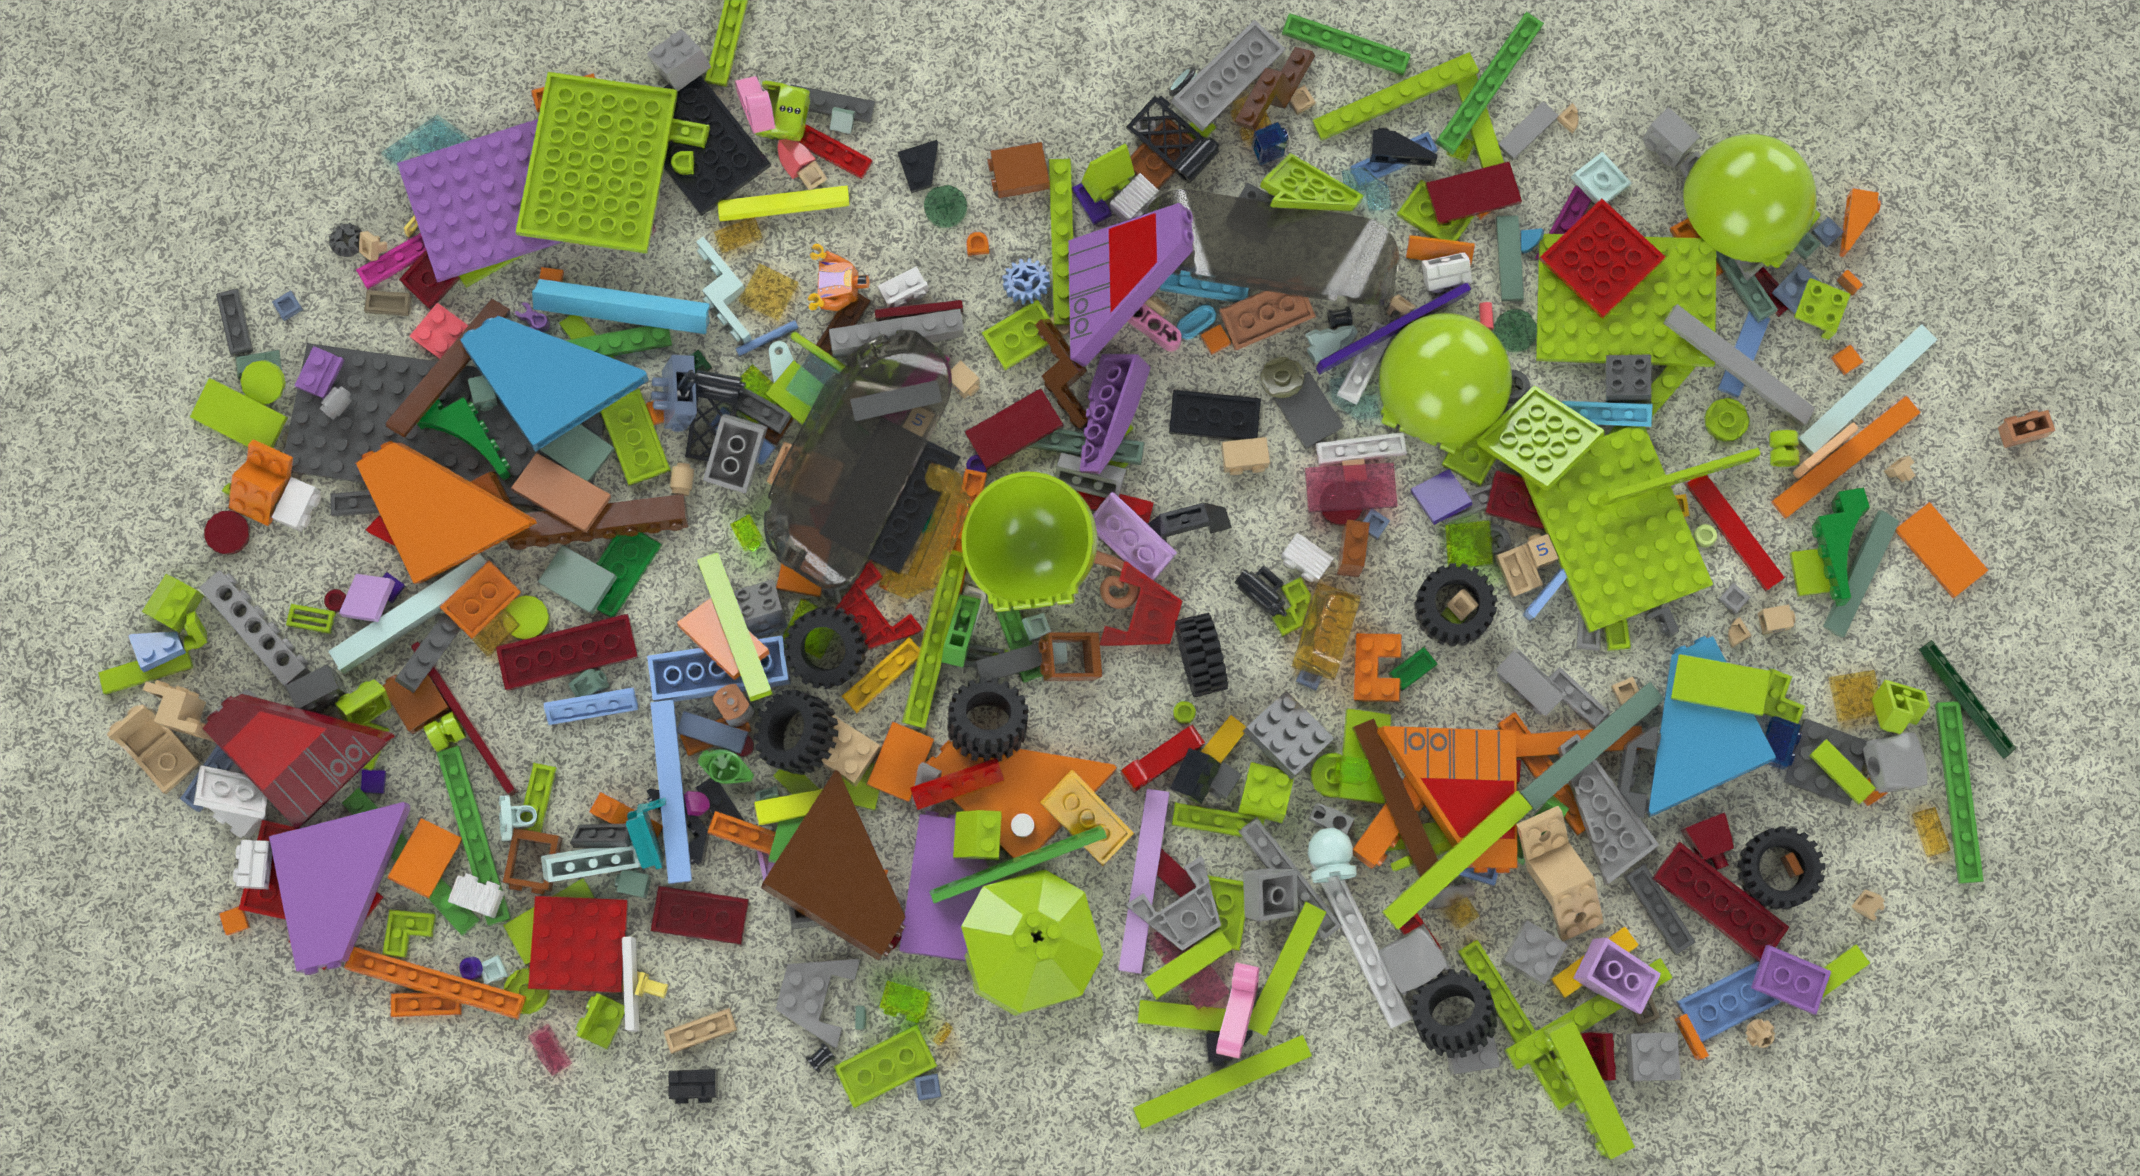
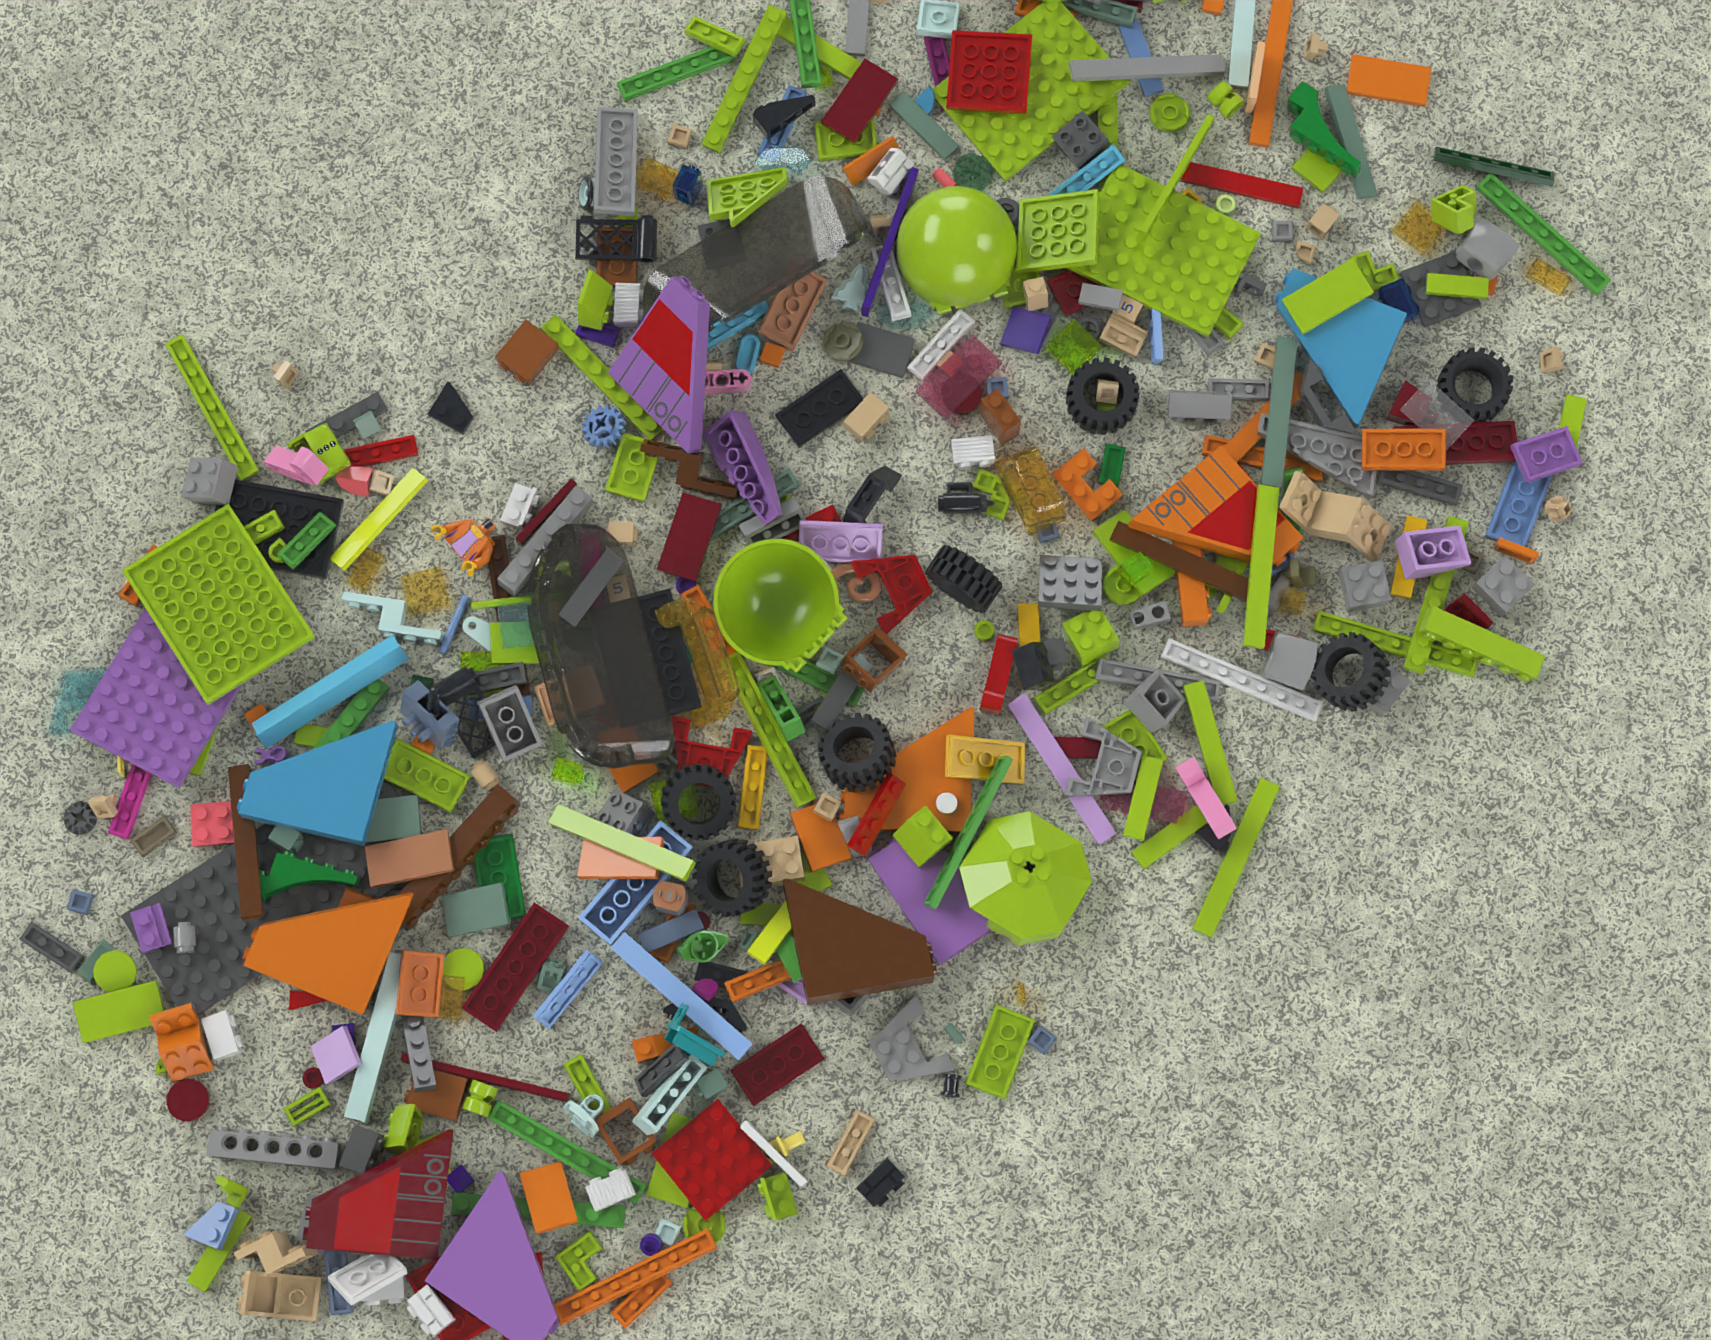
camera: 40 degrees left, 0 degrees up
(172, 602) = (194, 1184): lime slope -> none
(352, 503) = (263, 997): dark grey tile -> none
(423, 283) = (167, 798): dark red tile -> none
(550, 1050) = (758, 1249): clear pink slope -> none
(711, 171) = (306, 540): none -> bright green tile
(815, 25) = (285, 373): none -> tan tile
(905, 1001) = (974, 995): clear neon green brick -> none
(925, 742) = (827, 807): none -> tan plate
(945, 206) = (496, 423): clear green tile -> none
(977, 244) = (544, 430): orange tile -> none
(1275, 88) = (656, 143): reddish brown bracket -> none
(1331, 853) = (1172, 638): light aqua tile -> none
(1333, 321) = (847, 259): black bush -> none
(1402, 42) = (714, 36): none -> lime tile
(1475, 473) = (1035, 294): none -> tan brick
(1488, 898) = (1300, 575): none -> olive bracket
(1527, 522) = (1100, 297): none -> light grey tile
(1669, 868) = (1404, 449): none -> orange tile
(1724, 864) = (1435, 410): none -> clear tile
(1791, 865) = (1479, 378): dark orange tile -> none

